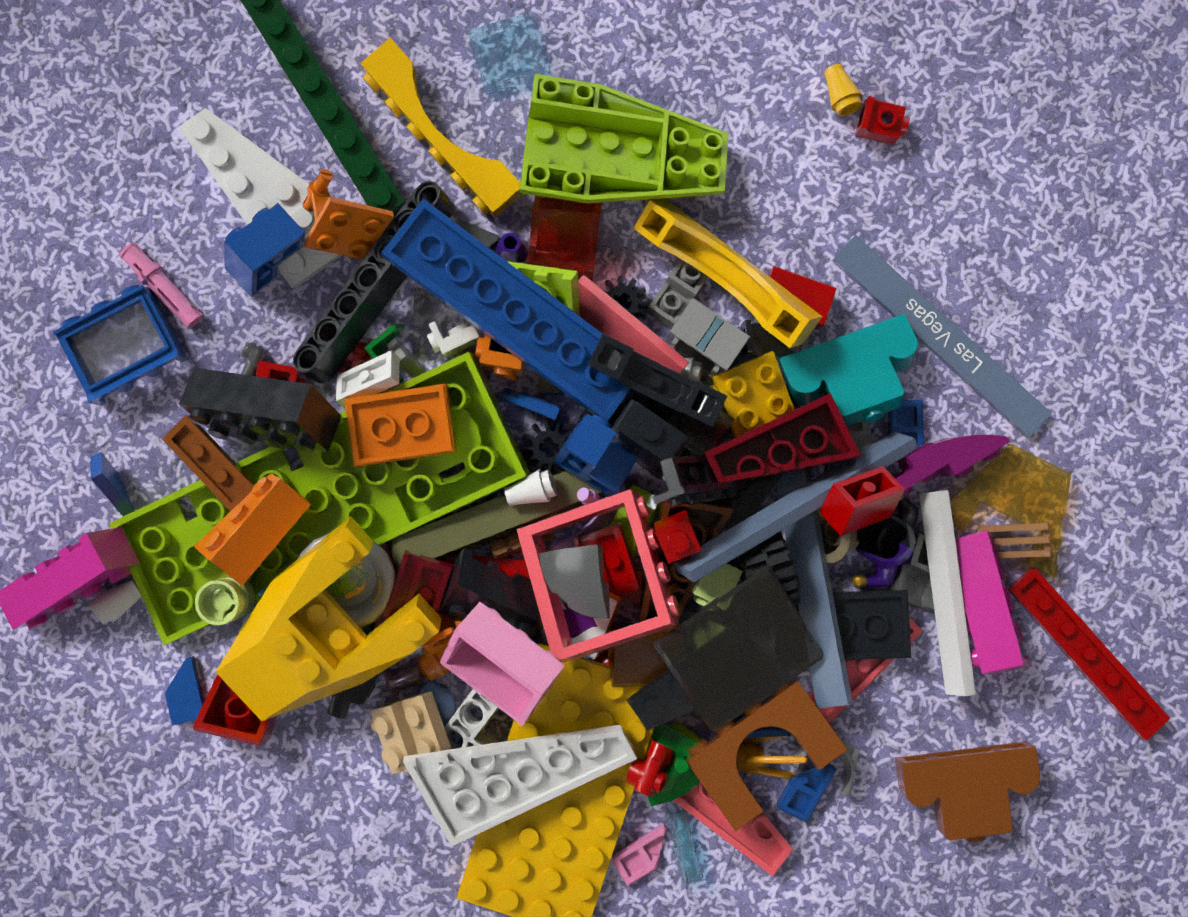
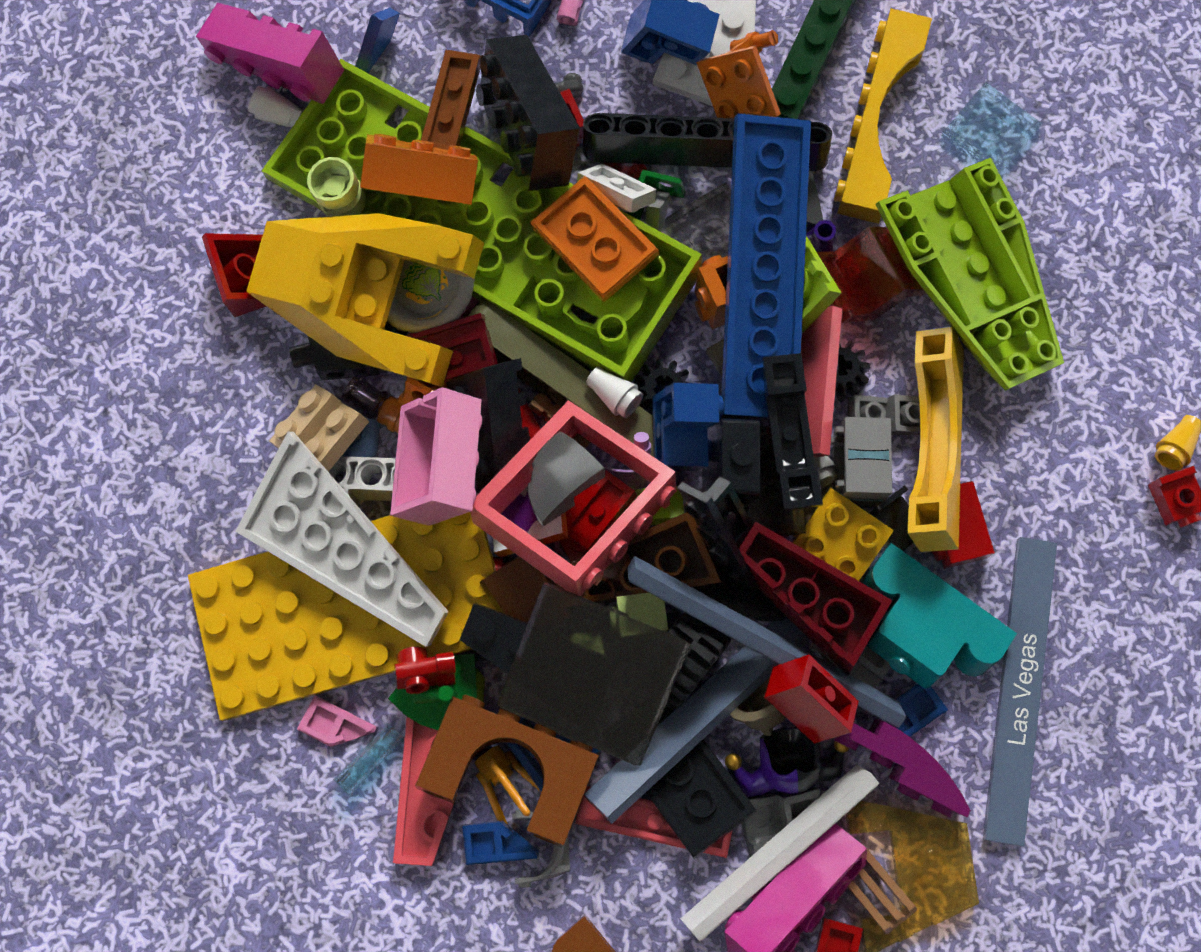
camera: 65 degrees right, 10 degrees down
(185, 694) = (230, 215): blue tile -> none
(460, 338) = (706, 243): white bracket -> none
(530, 403) = (692, 350): blue tile -> none
(677, 536) = (660, 542): red brick -> none

